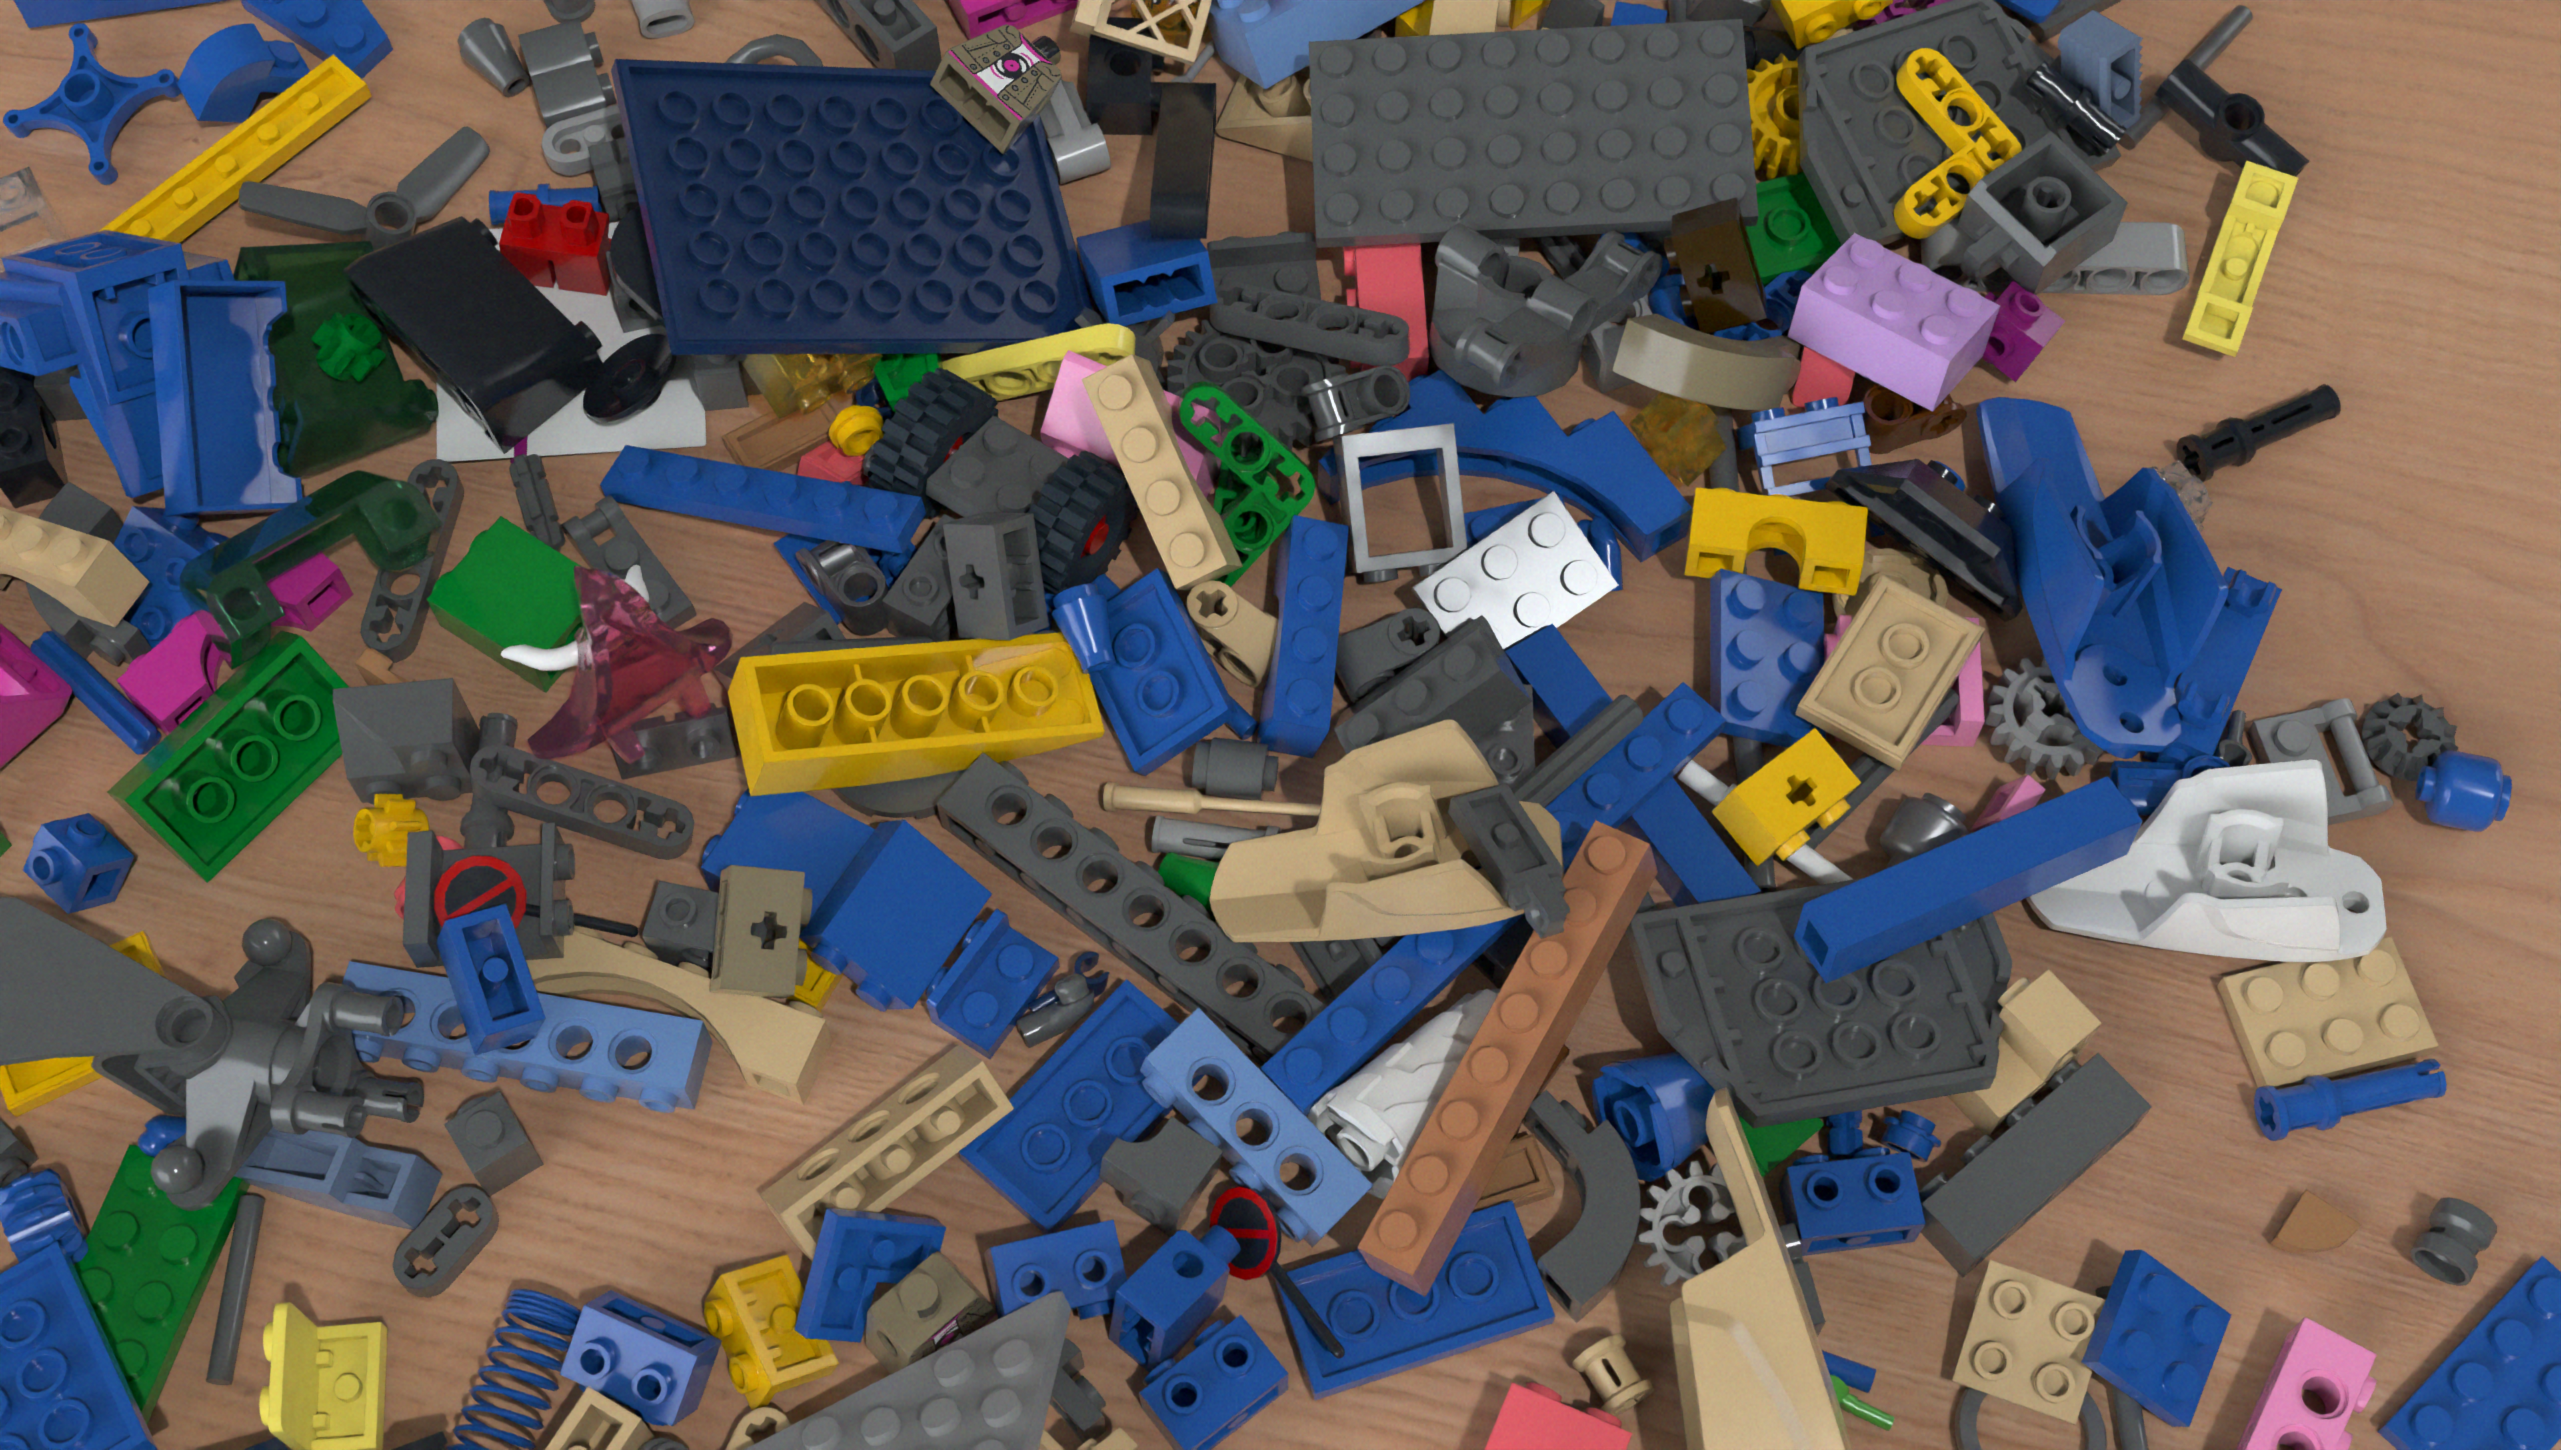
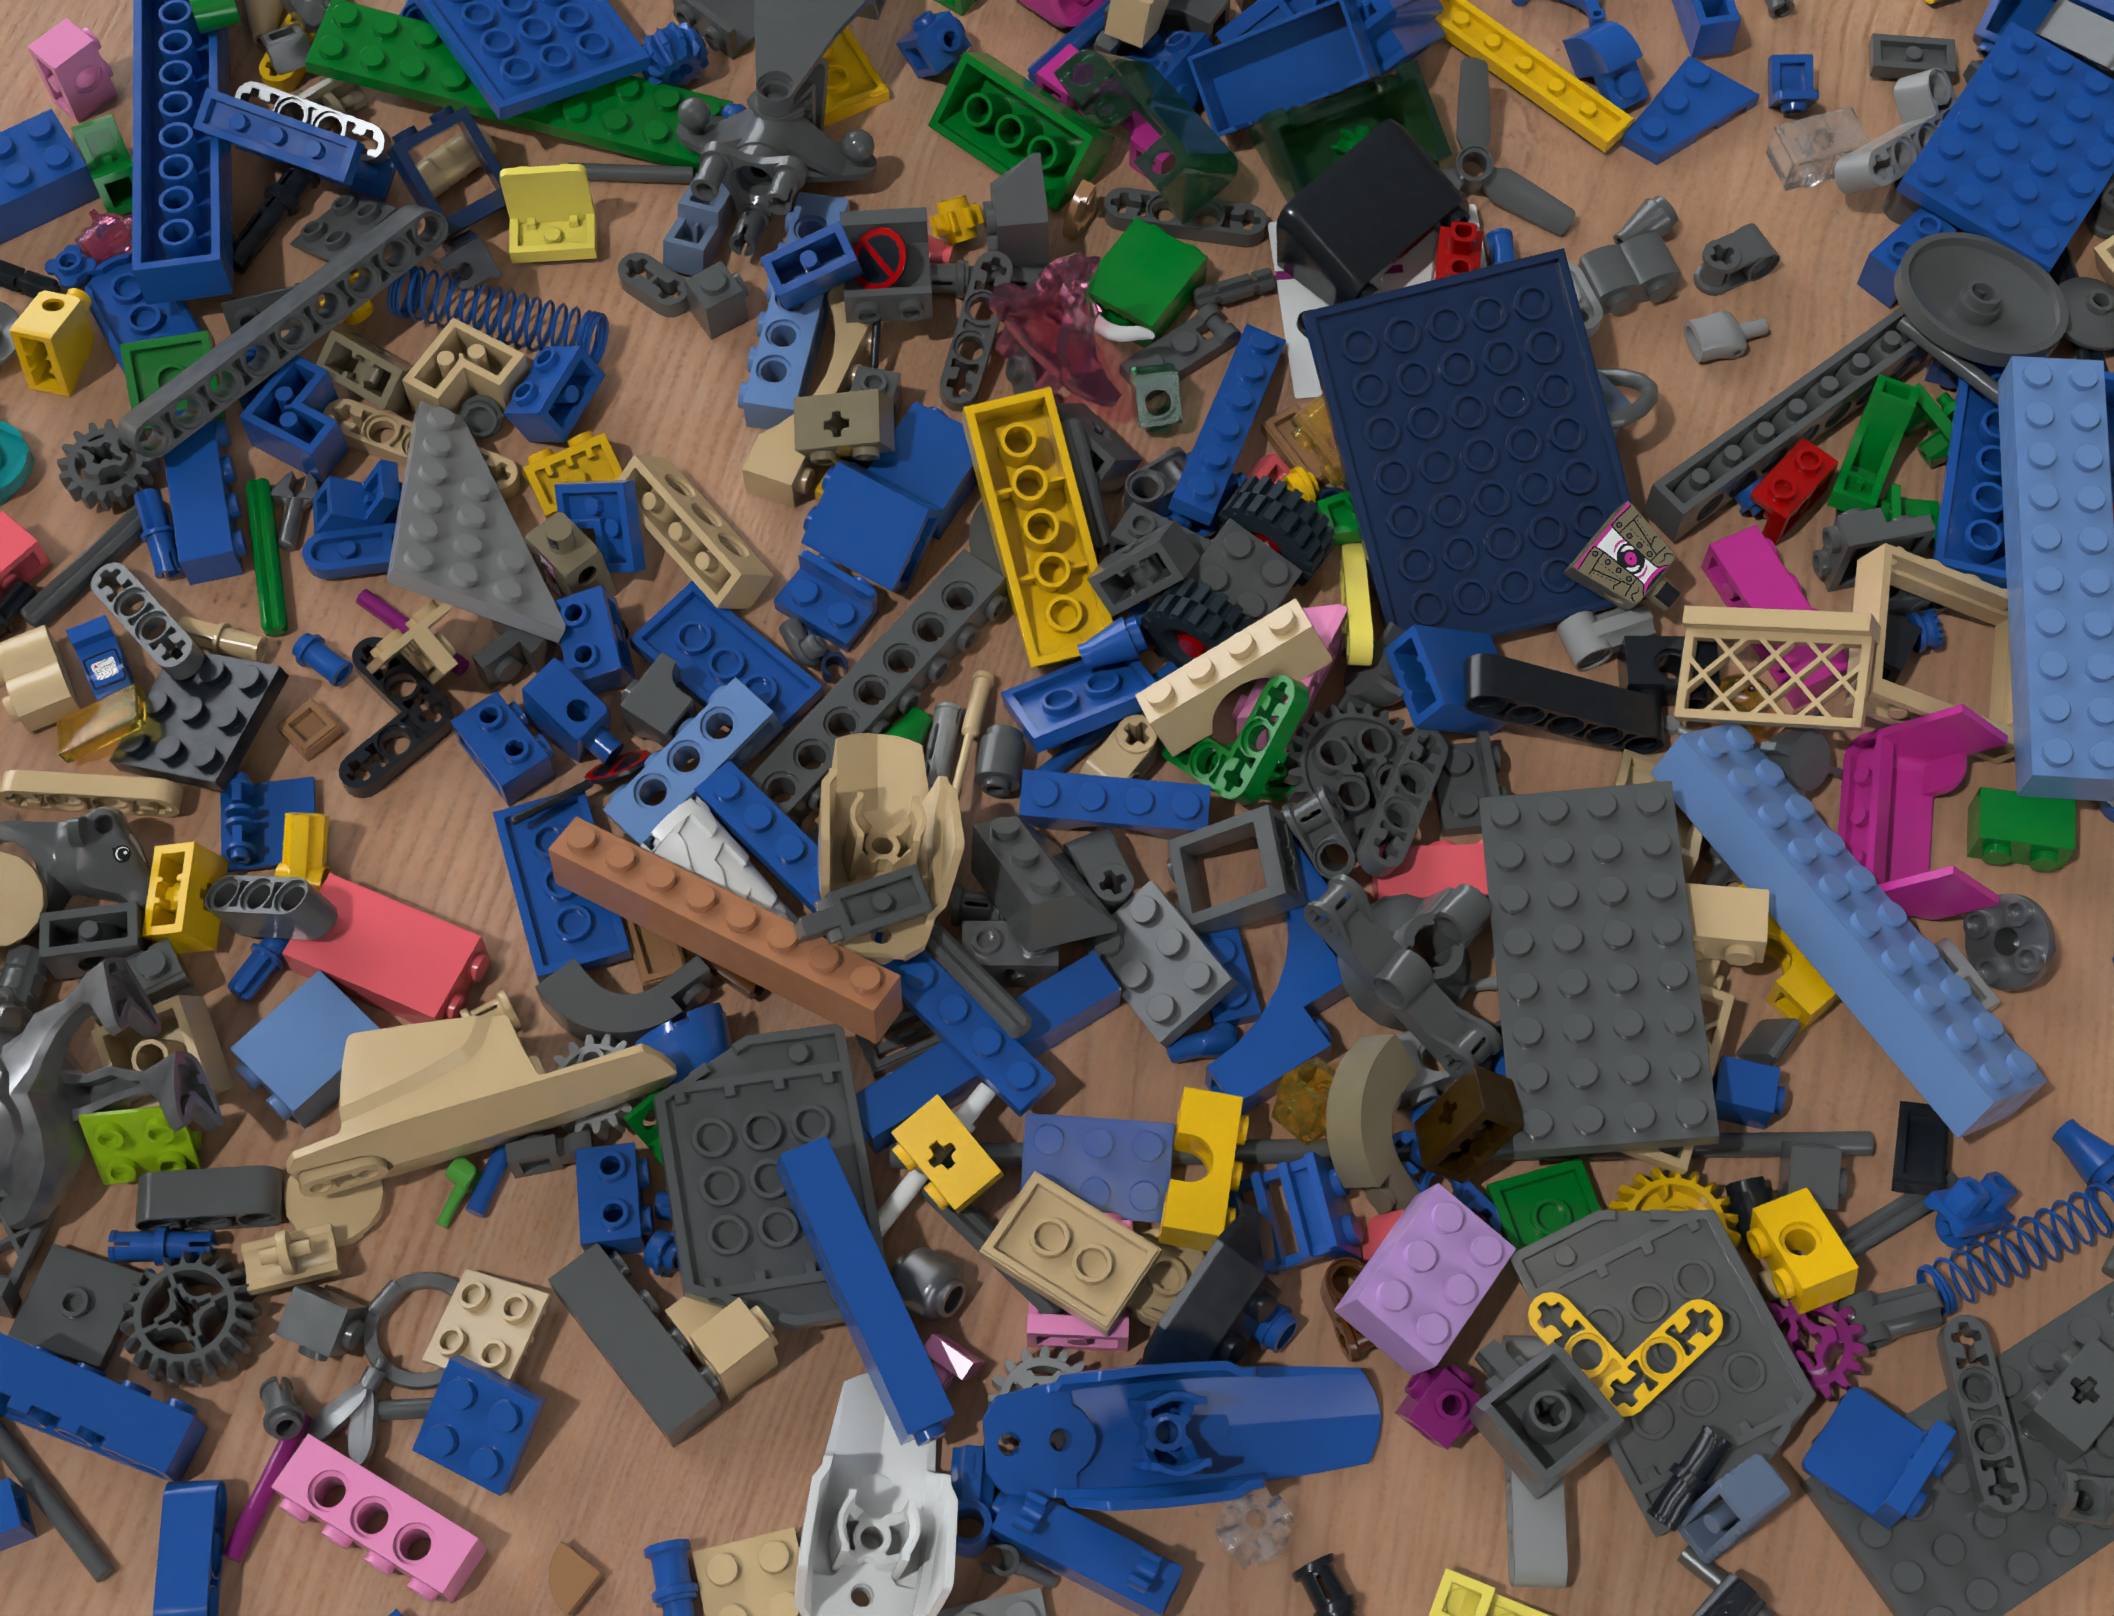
camera: 90 degrees right, 0 degrees up
(708, 583) = (1150, 378): none -> clear green brick

